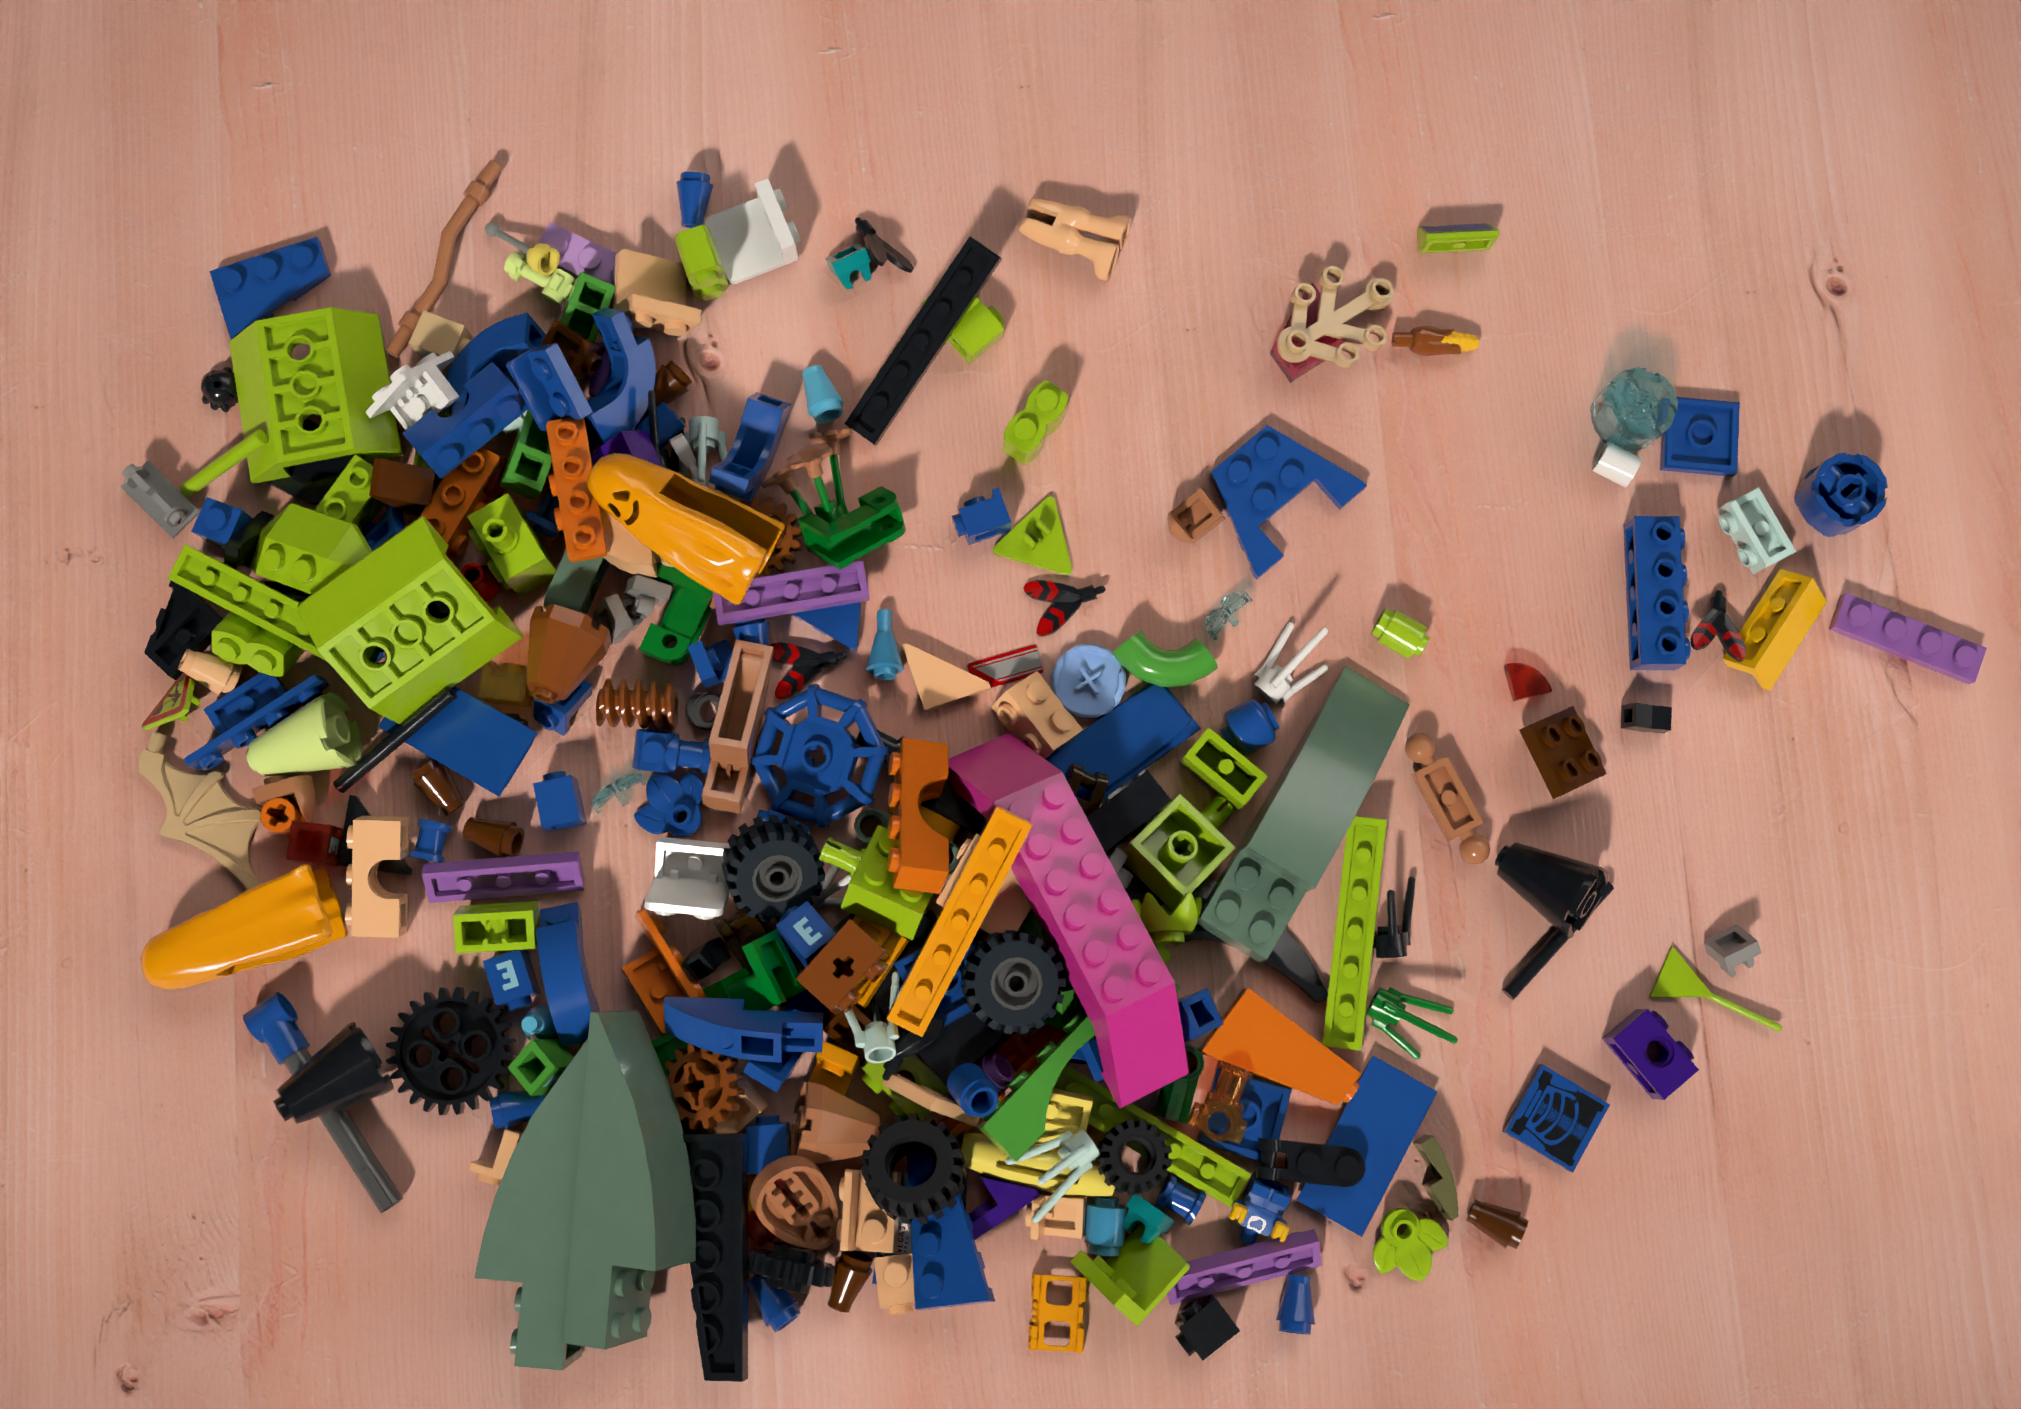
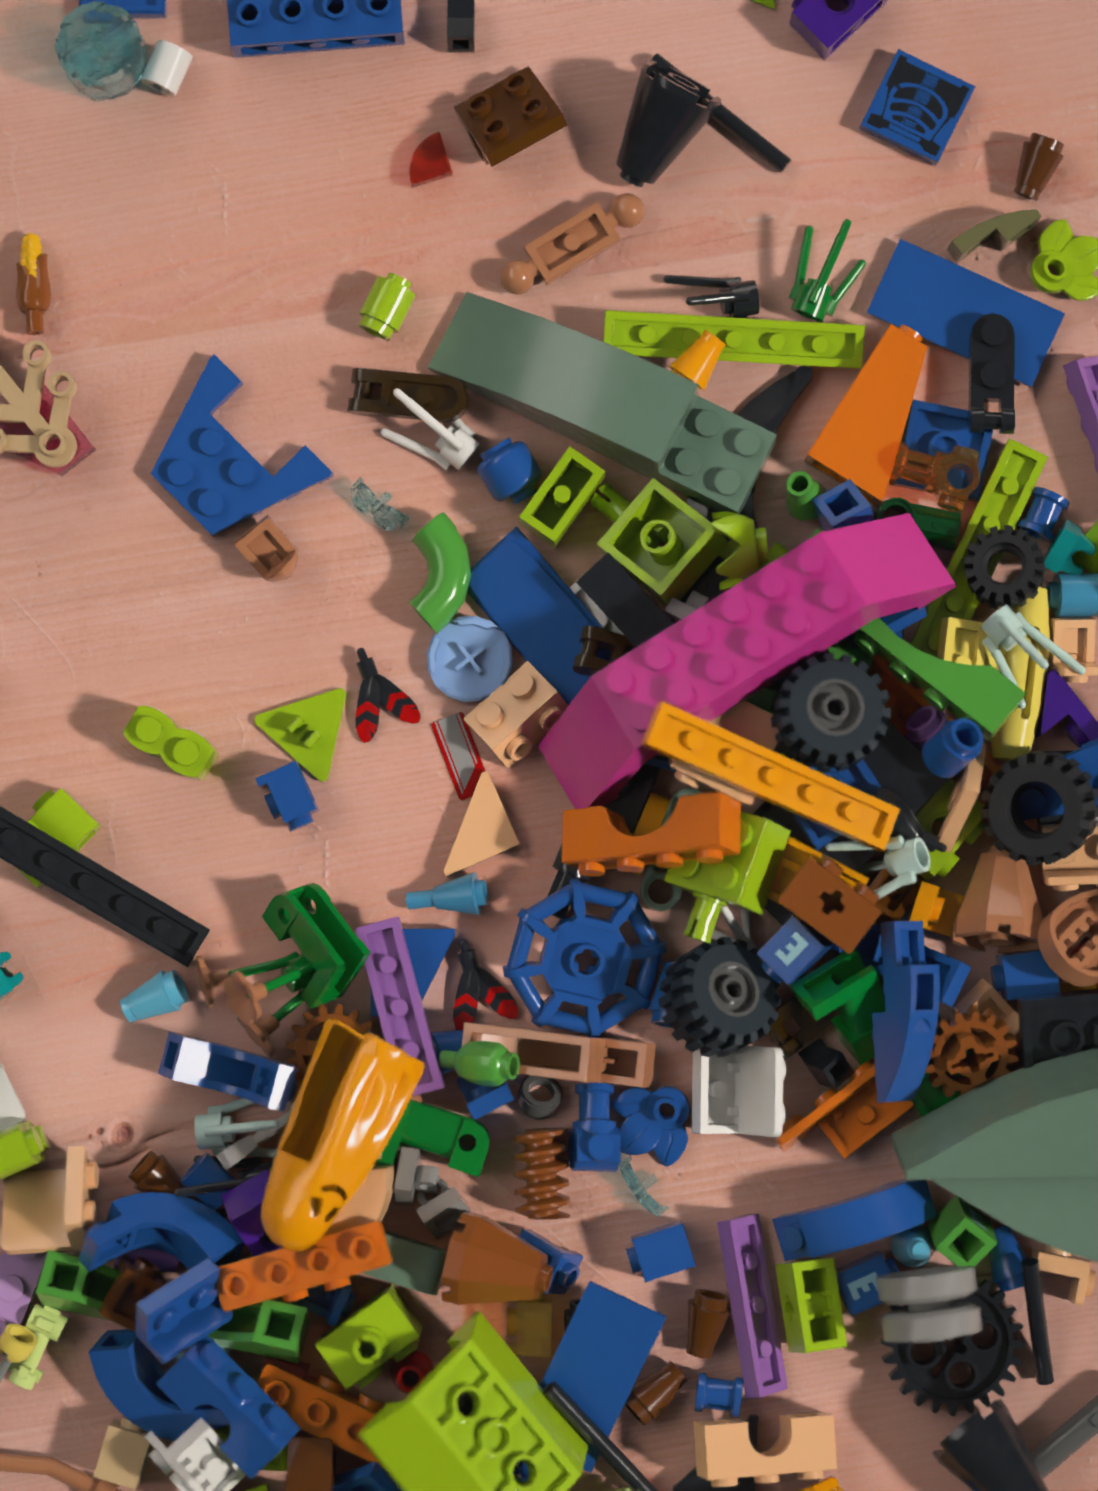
camera: 85 degrees left, 5 degrees up
(460, 1128) = (1037, 1321): none -> black bar
(481, 1026) = (929, 1310): none -> light grey wheel
(735, 656) = (482, 1063): none -> bright green plant
(1214, 978) = (799, 495): none -> bright green cone
(1262, 1210) = (1047, 423): blue piece -> none
(1319, 668) = (438, 395): none -> dark brown plate
(1335, 897) = (699, 359): none -> light orange cone

